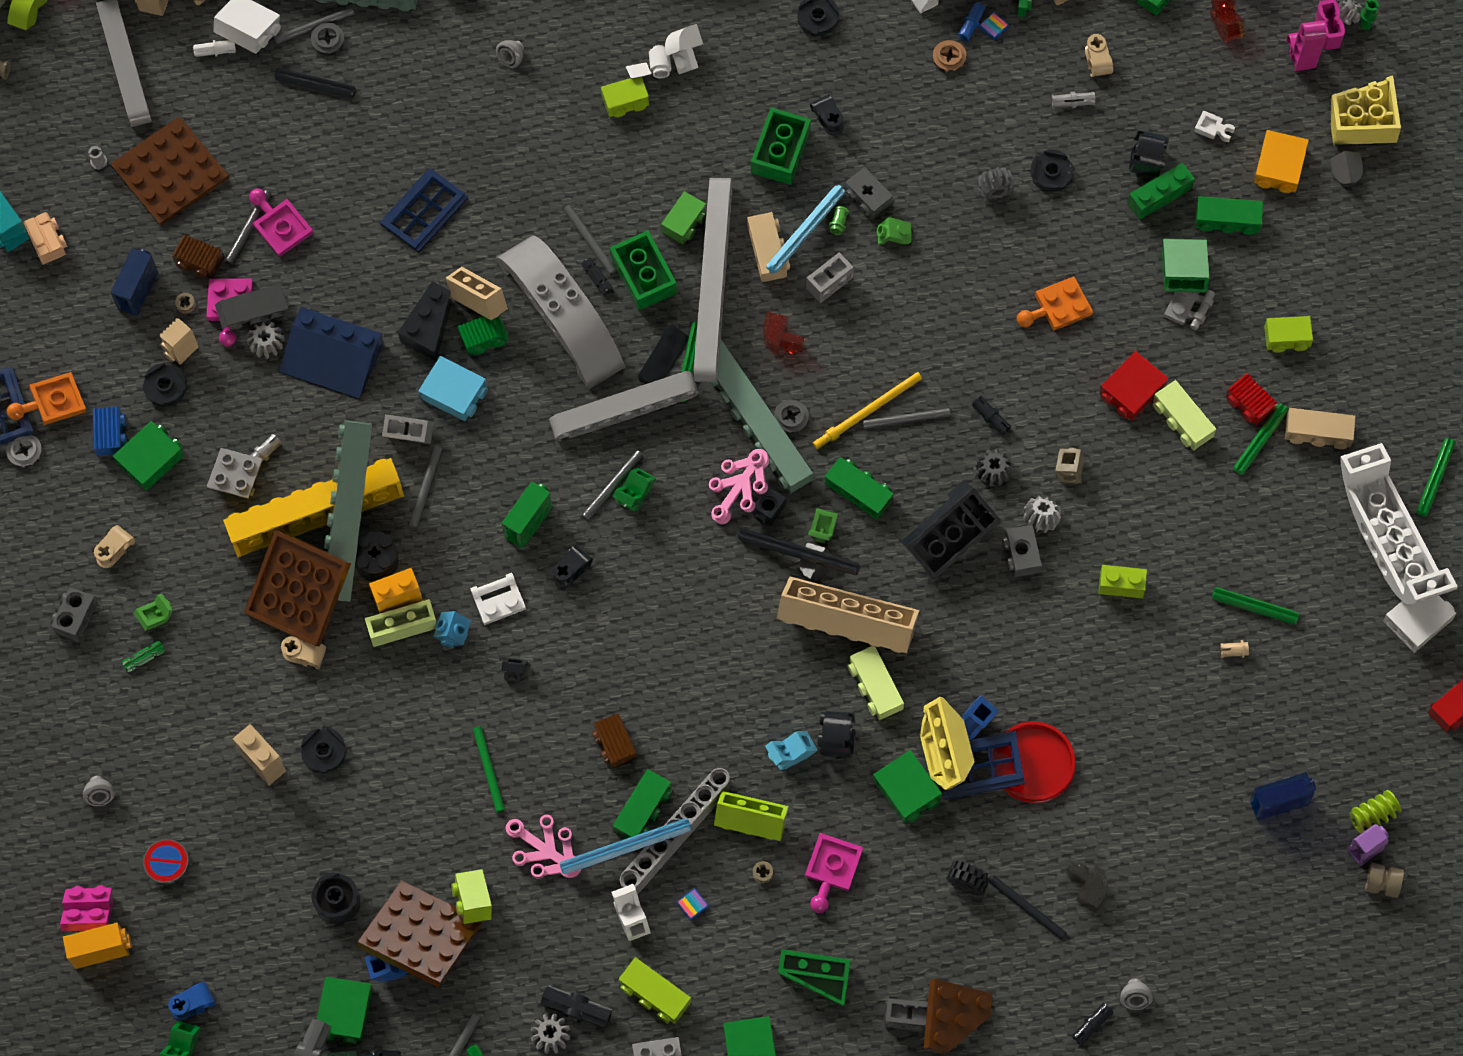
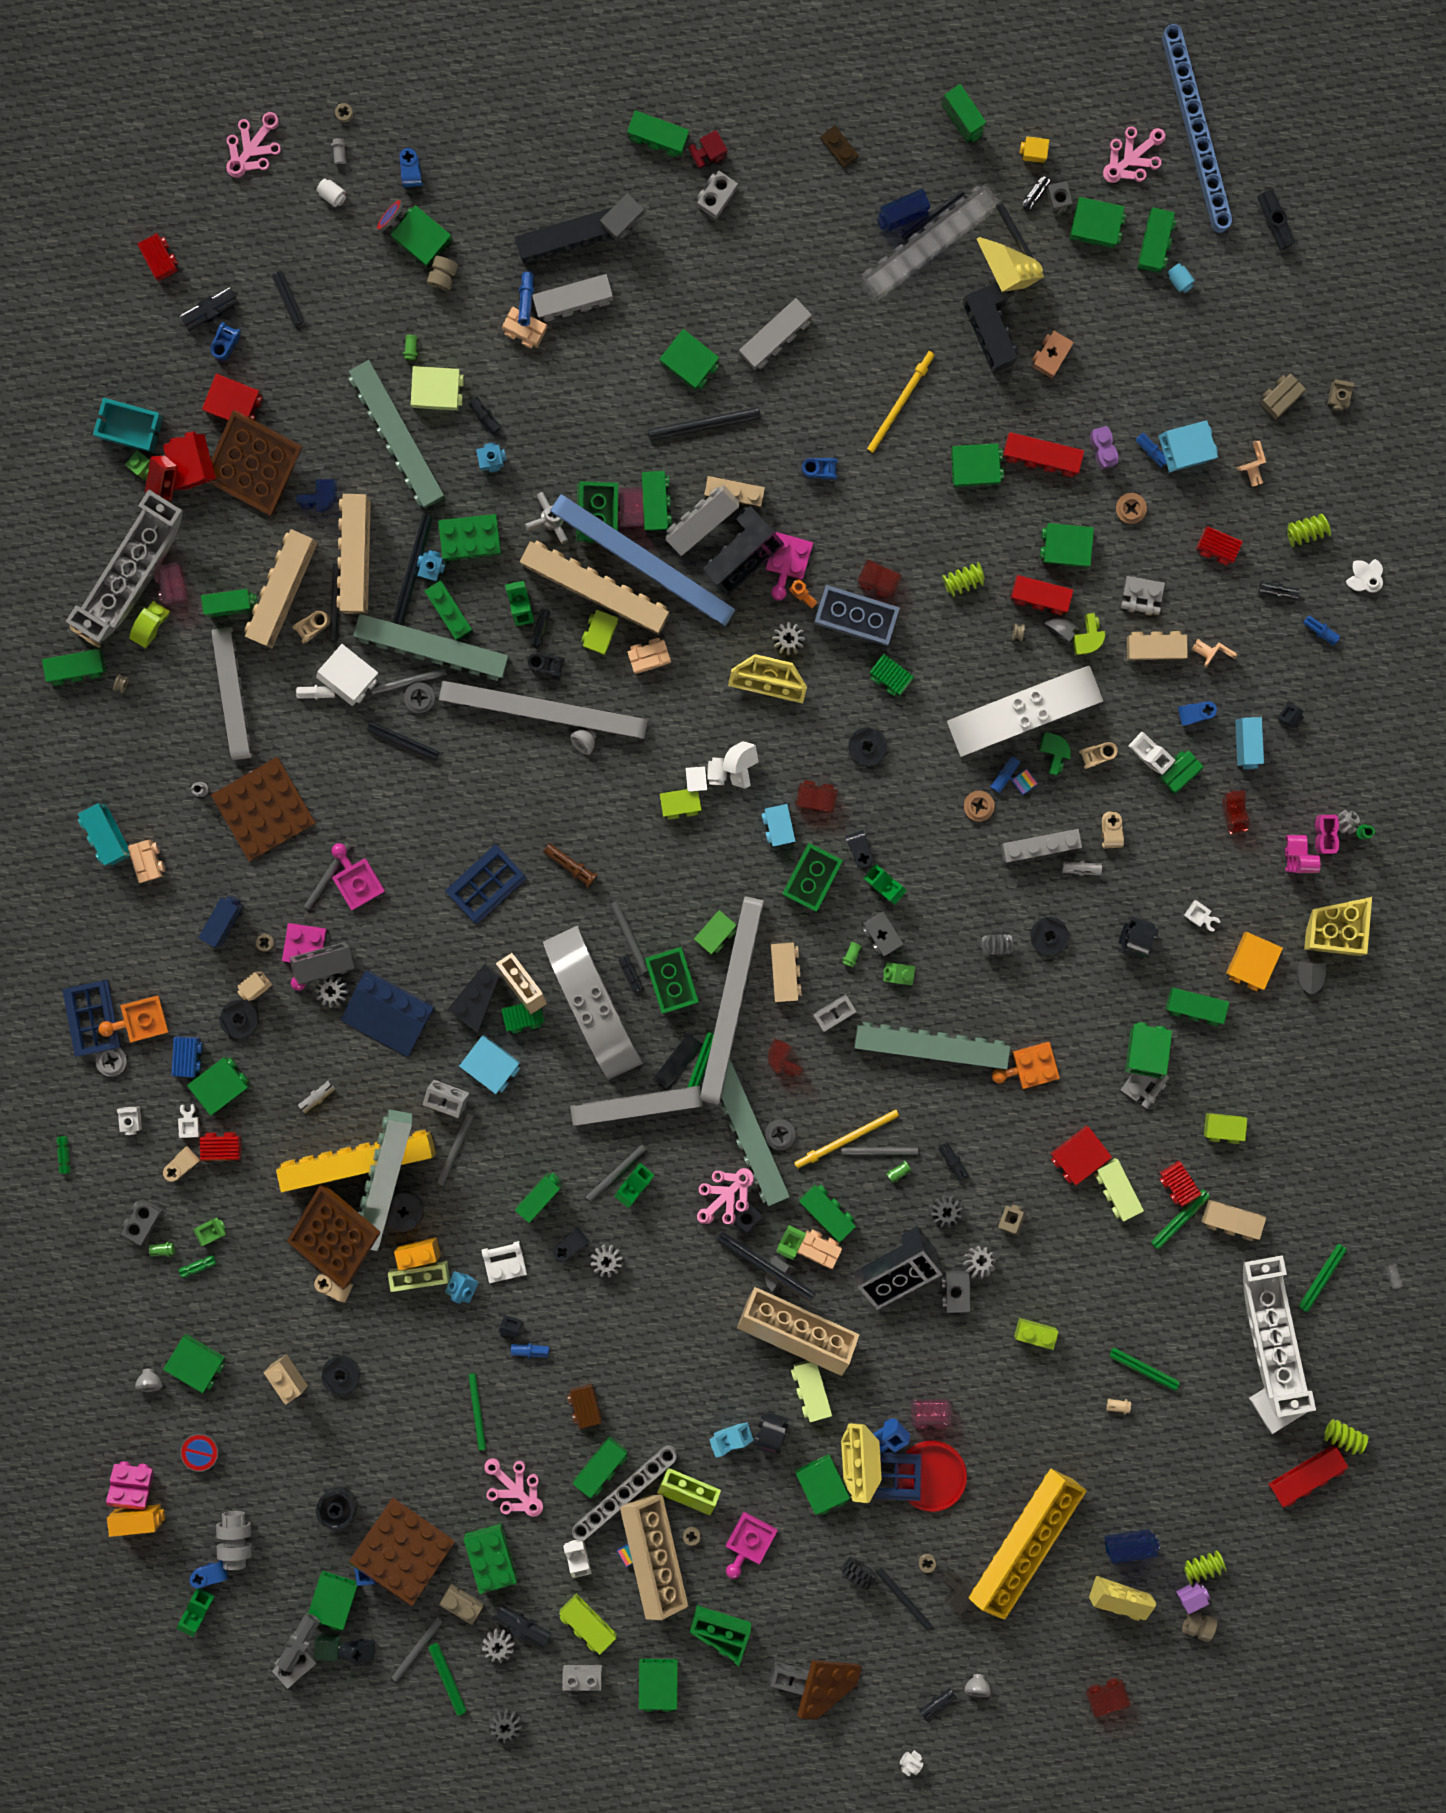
camera: 10 degrees right, 20 degrees up
(48, 498) = (132, 1113): none -> white brick
(100, 643) = (162, 1249): none -> bright green pin
(118, 503) = (188, 1125): none -> white plate
(151, 761) = (195, 1363): none -> green brick
(157, 520) = (220, 1147): none -> red brick
(198, 256) = (280, 901): reddish brown brick -> none
(215, 944) = (234, 1547): none -> light grey piece
(234, 473) = (291, 1115): light grey hinge -> none
(462, 28) = (543, 709): none -> light grey beam
(472, 896) = (449, 1525): lime brick -> none
(499, 989) = (461, 1604): none -> dark tan brick
(523, 179) = (577, 870): none -> reddish brown pin
(527, 930) = (490, 1558): none -> green brick
(541, 690) = (529, 1350): none -> blue axle
(608, 583) = (612, 1265): none -> light grey gear
(625, 846) = (578, 1505): dark azure axle -> none
(721, 893) = (654, 1557): none -> tan brick
(736, 103) = (779, 825): none -> medium azure brick
(771, 71) = (816, 797): none -> clear red brick
(805, 229) = (821, 963): medium azure axle -> none
(857, 528) = (819, 1249): none -> light nougat brick
(860, 143) = (885, 884): none -> green brick
(929, 438) = (899, 1172): none -> bright green pin
(944, 298) = (932, 1046): none -> sand green brick
(1018, 688) = (930, 1412): none -> clear pink brick
(1024, 81) = (1041, 845): none -> light grey brick
(1047, 868) = (929, 1557): none -> dark tan bush
(1160, 812) = (1027, 1544): none -> yellow brick
(1161, 191) = (1142, 974): green brick -> none
(1285, 860) = (1121, 1599): none -> light yellow wedge
(1294, 982) = (1107, 1697): none -> clear red brick

